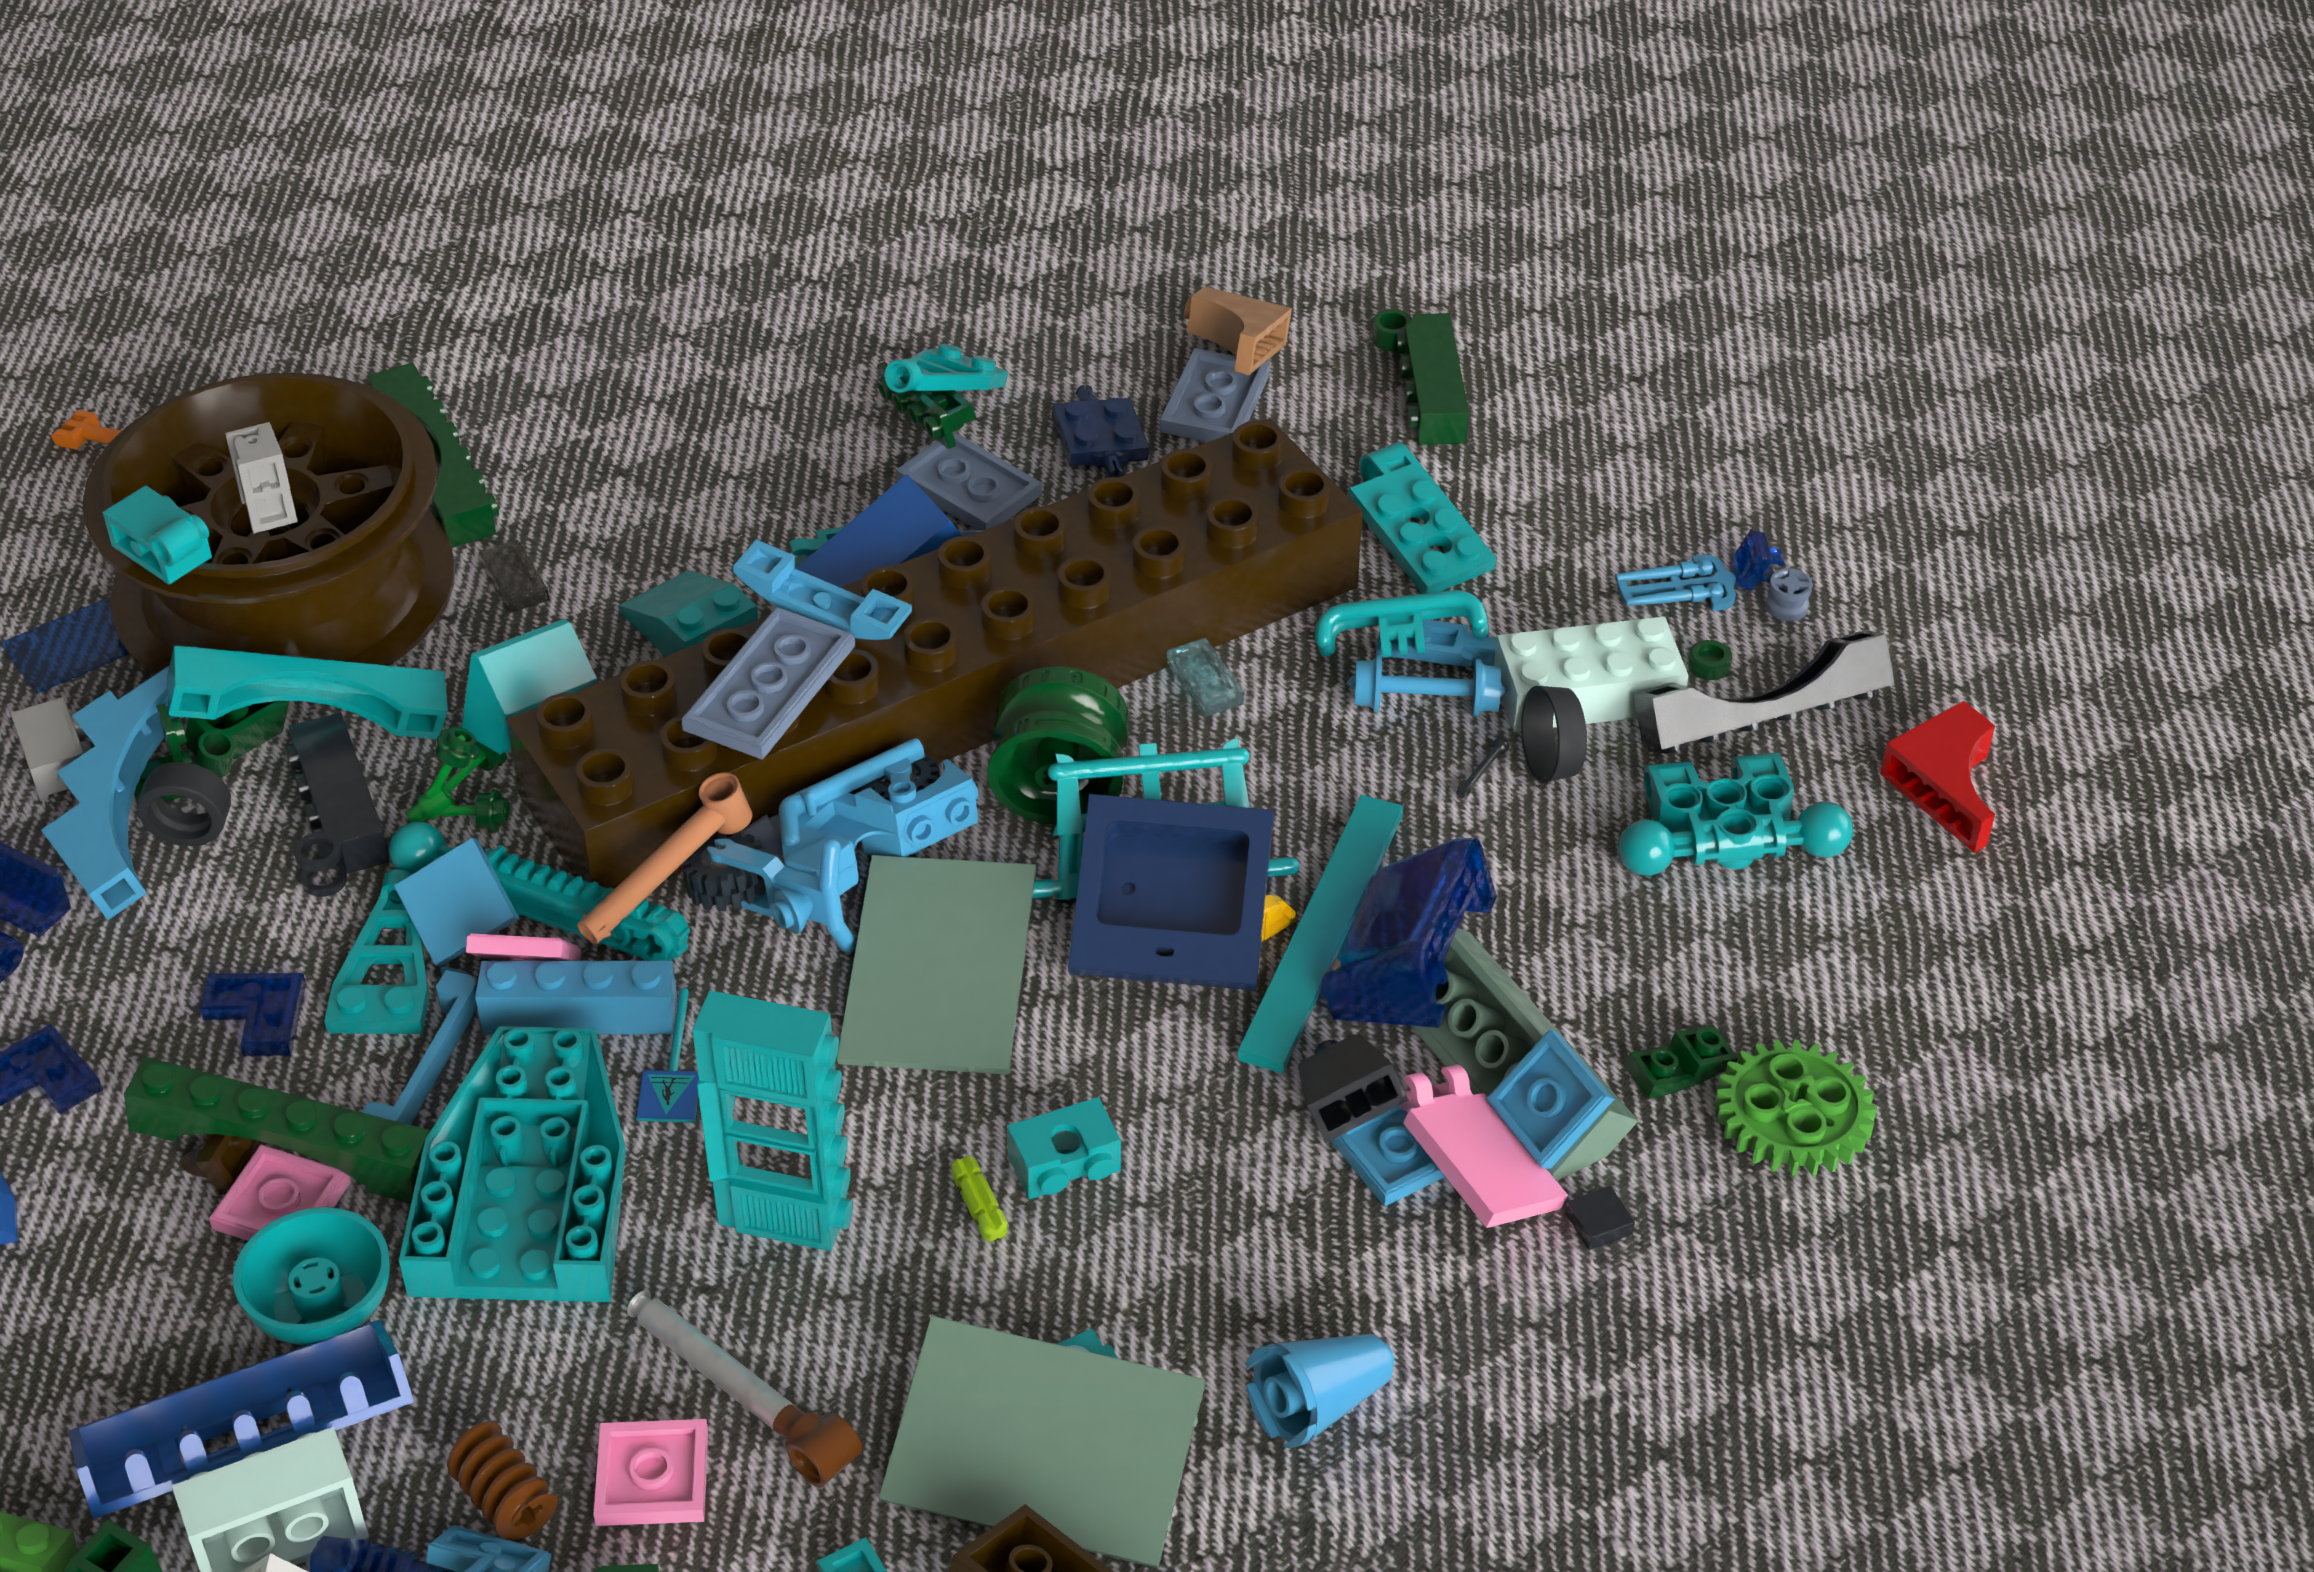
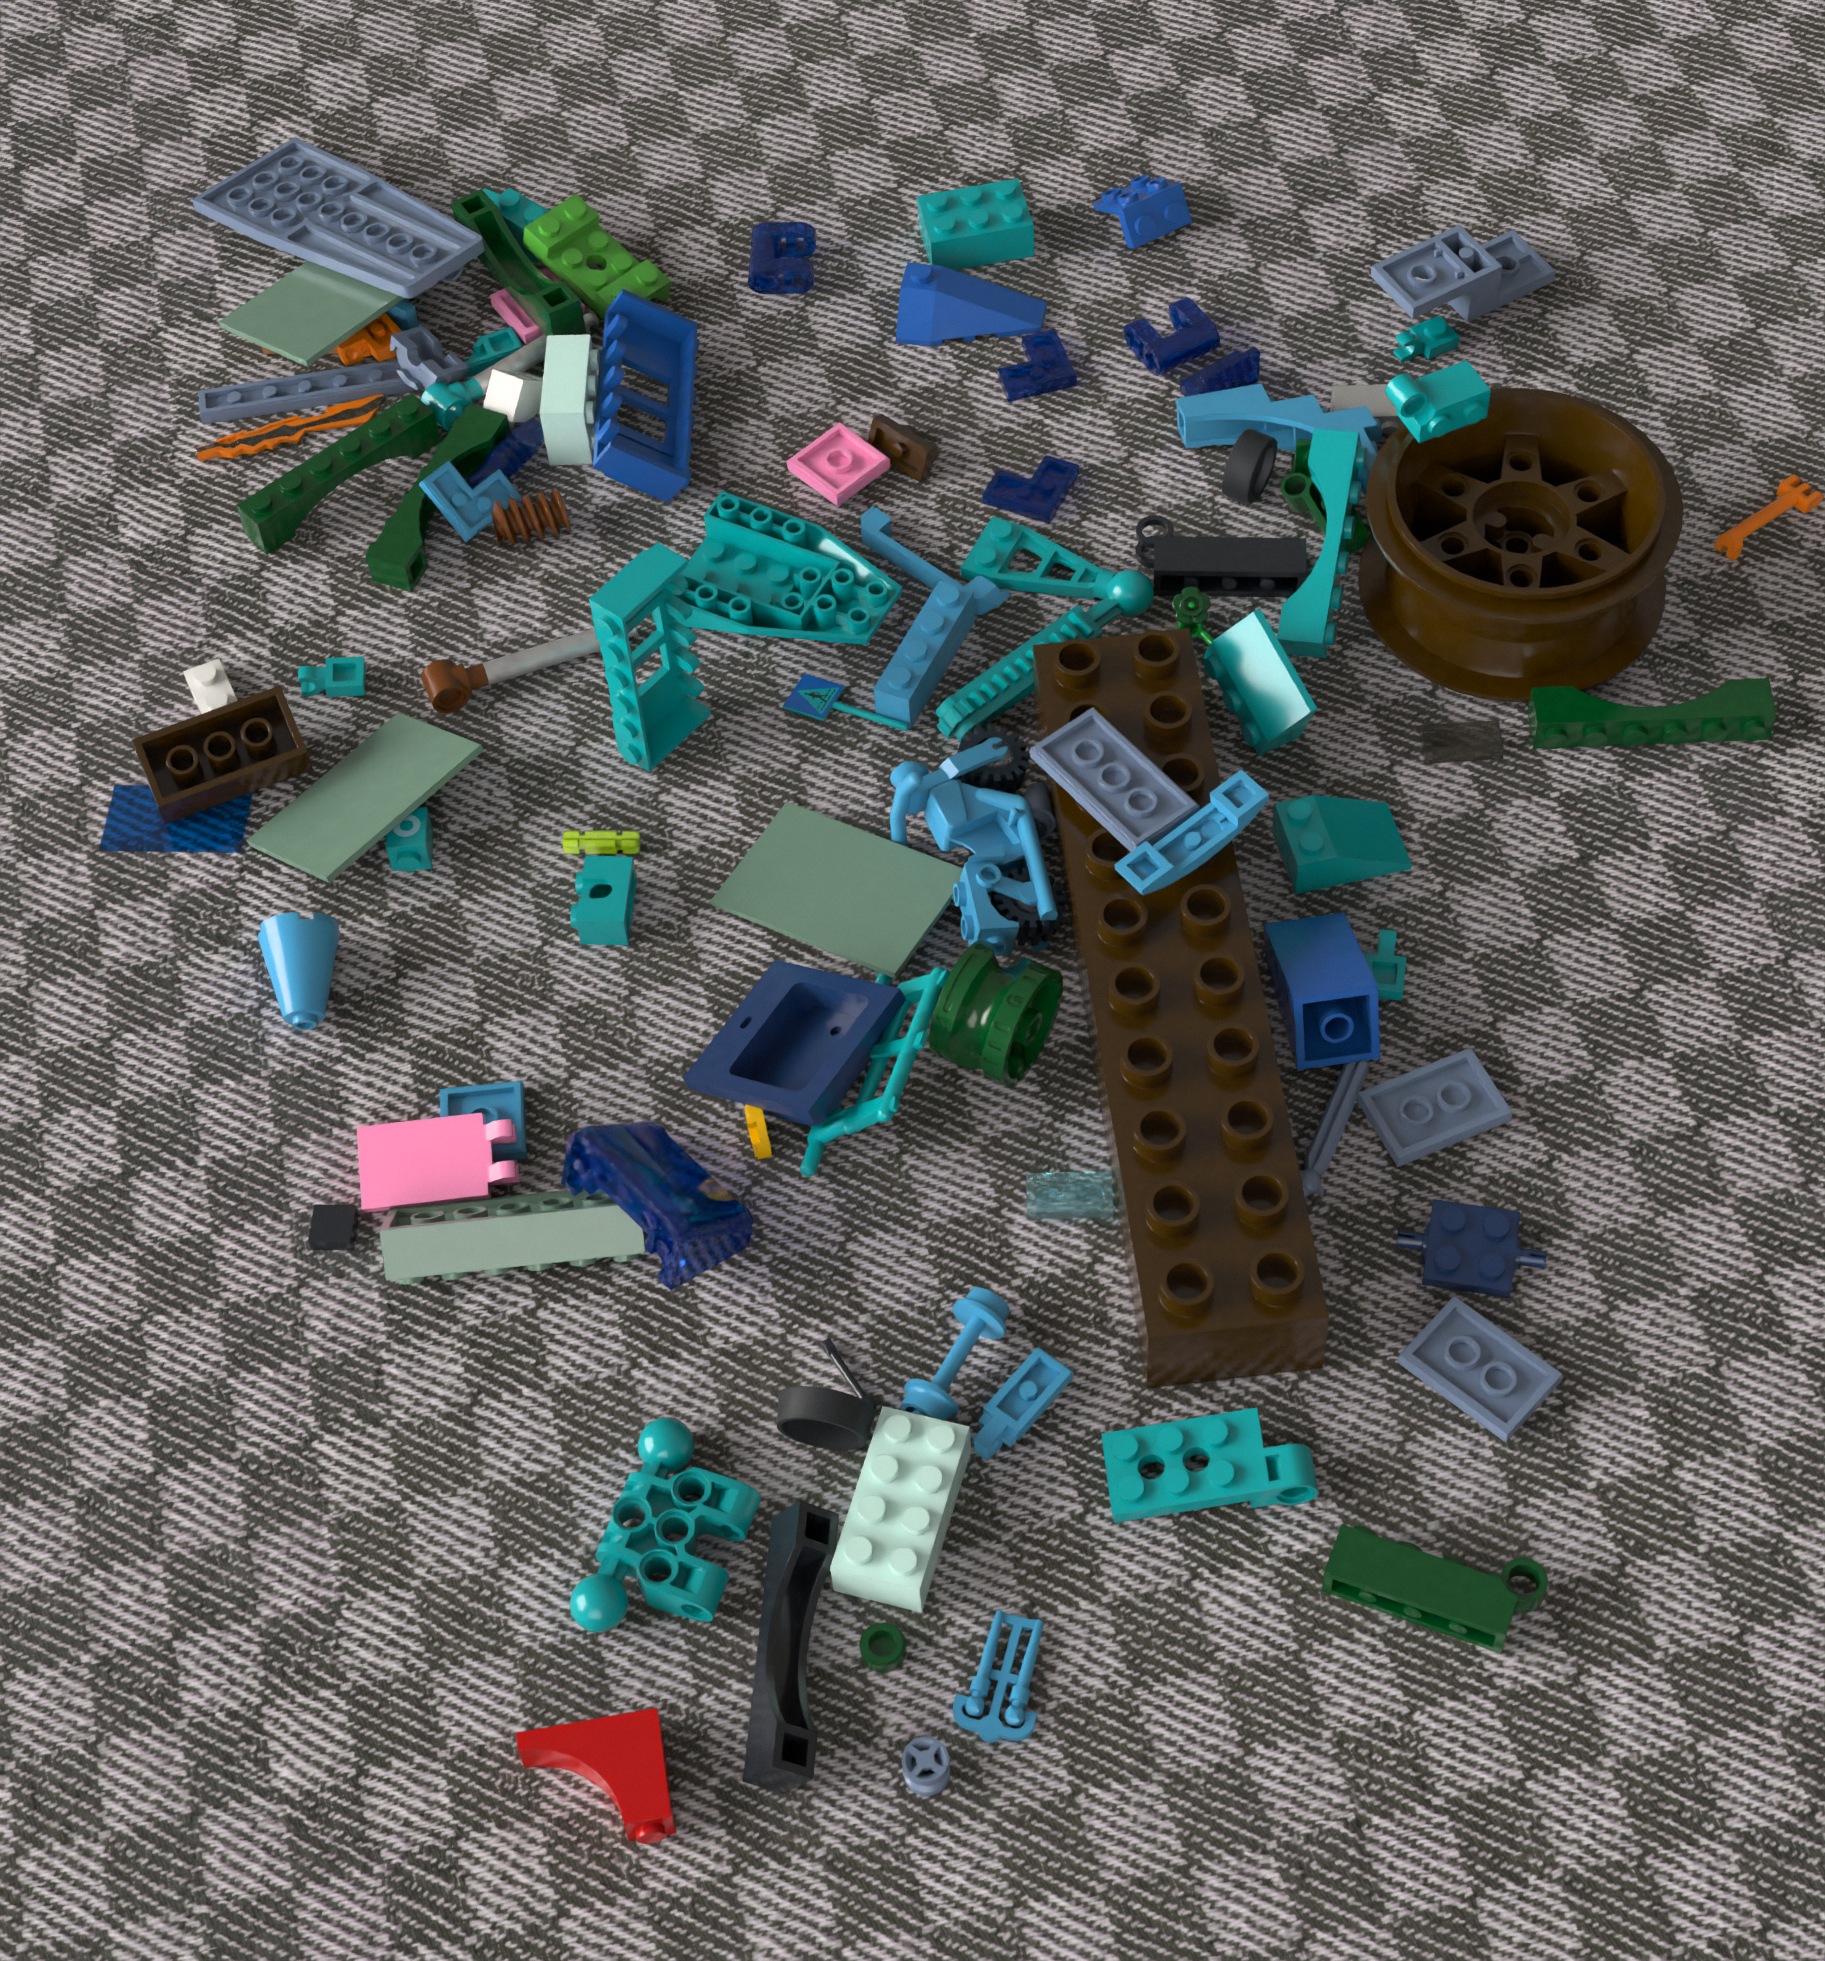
camera: 120 degrees right, 10 degrees up
(180, 1100) = (927, 405): dark green arch -> none
(261, 477) = (1468, 460): light grey hinge -> none
(312, 1275) = (737, 447): teal piece -> none
(456, 899) = (1052, 597): dark azure tile -> none
(521, 948) = (980, 625): bright pink plate -> none
(651, 1472) = (491, 598): bright pink plate -> none
(722, 811) = (1018, 734): nougat piece -> none
(934, 411) = (1546, 1092): dark green bracket -> none
(943, 371) = (1618, 1160): teal plate -> none
(1239, 323) = (1565, 1433): medium nougat arch -> none
(1320, 934) = (734, 1169): teal tile -> none
(1348, 1085) = (542, 1090): black torso -> none
(1400, 619) = (1035, 1361): teal piece -> none
(1550, 1099) = (429, 1209): dark azure tile -> none
(1687, 1061) = (437, 1360): dark green slope -> none
(1753, 560) = (986, 1758): clear blue tile -> none
(1795, 1107) = (347, 1441): bright green gear -> none

